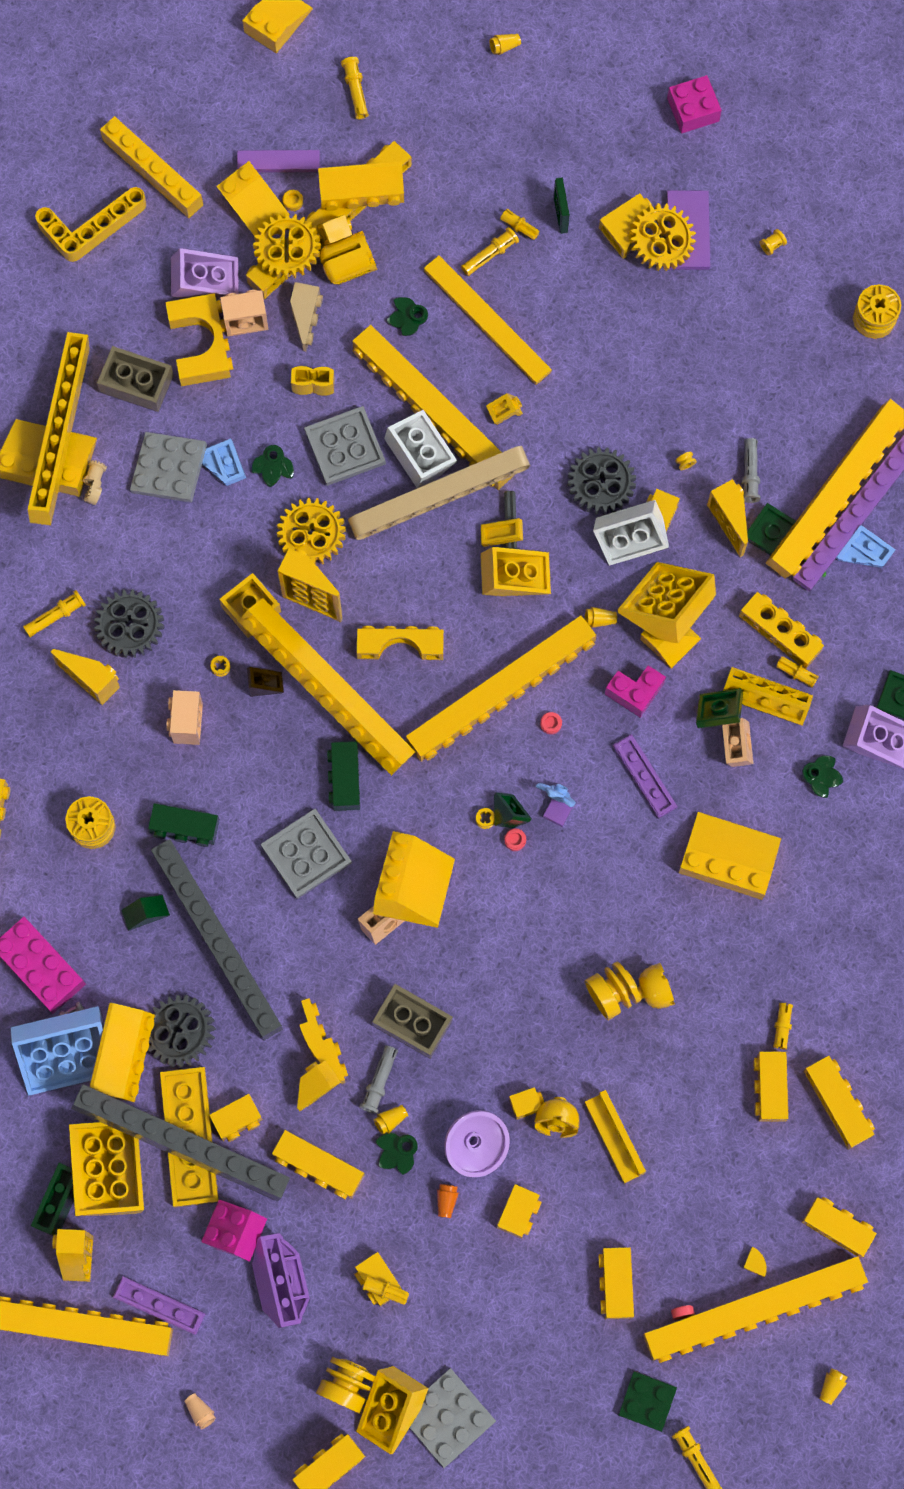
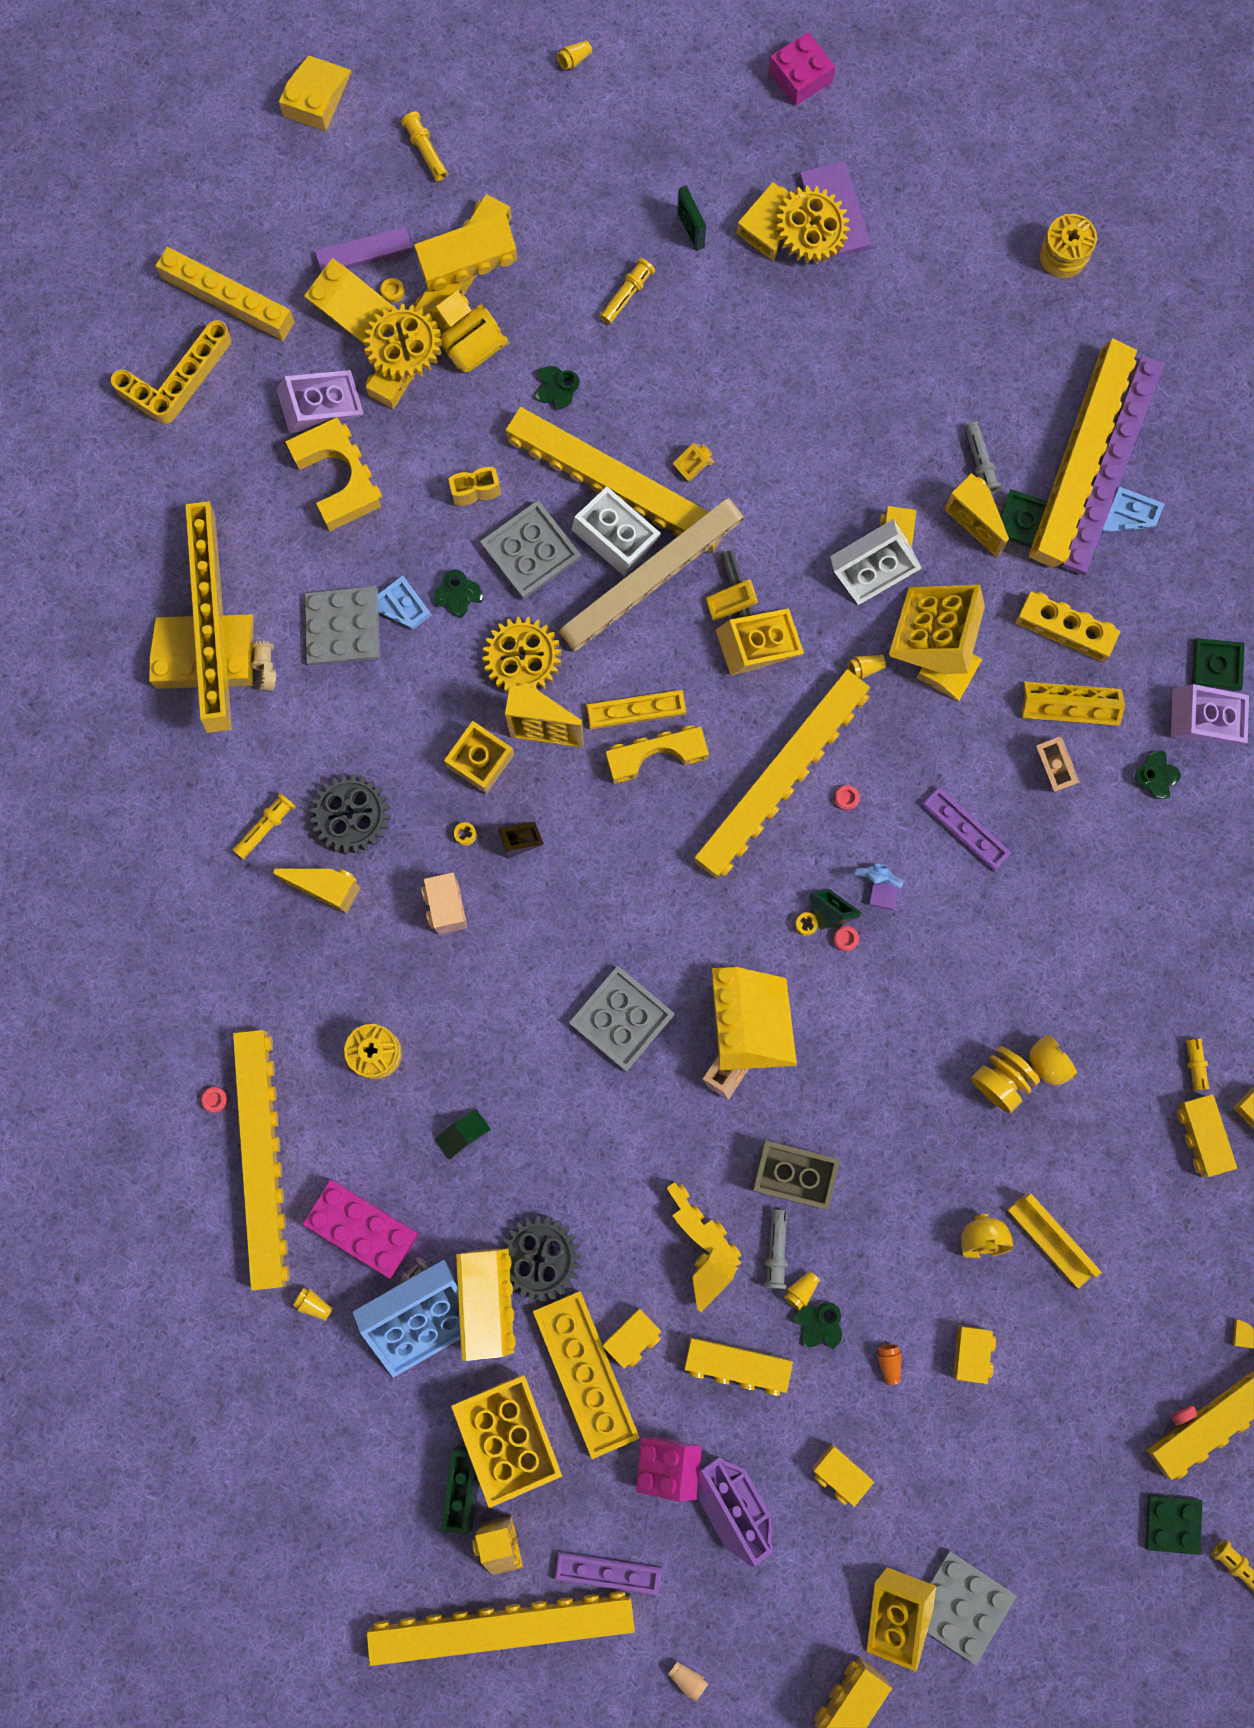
camera: 15 degrees left, 5 degrees up
(135, 378) = (276, 536): dark tan brick -> none
(180, 1143) = (580, 1389): dark grey brick -> none
(183, 825) = (477, 1024): dark green brick -> none
(217, 939) = (552, 1143): dark grey brick -> none
(244, 312) = (377, 430): light nougat brick -> none
(304, 306) = (439, 406): tan slope -> none
(326, 686) = (592, 826): yellow brick -> none
(344, 776) = (639, 920): dark green brick -> none
(345, 1384) = (842, 1613): yellow wheel -> none
(386, 1290) = (857, 1489): yellow axle -> none
(394, 602) = (636, 709): none -> yellow tile
(486, 1150) = (914, 1299): lavender dish -> none
(487, 320) = (645, 367): yellow tile -> none
(519, 224) = (649, 251): yellow axle -> none
(526, 1103) = (946, 1230): yellow brick -> none
(599, 463) = (815, 494): dark grey gear -> none
(616, 1283) = (1103, 1404): yellow brick -> none
(635, 695) = (932, 741): dark pink brick -> none
(685, 461) = (908, 466): yellow bush -> none
(719, 708) = (1028, 732): dark green tile -> none
(730, 856) = (1085, 891): yellow slope -> none
(773, 242) = (931, 199): yellow bush -> none
(797, 671) = (1097, 667): yellow axle -> none

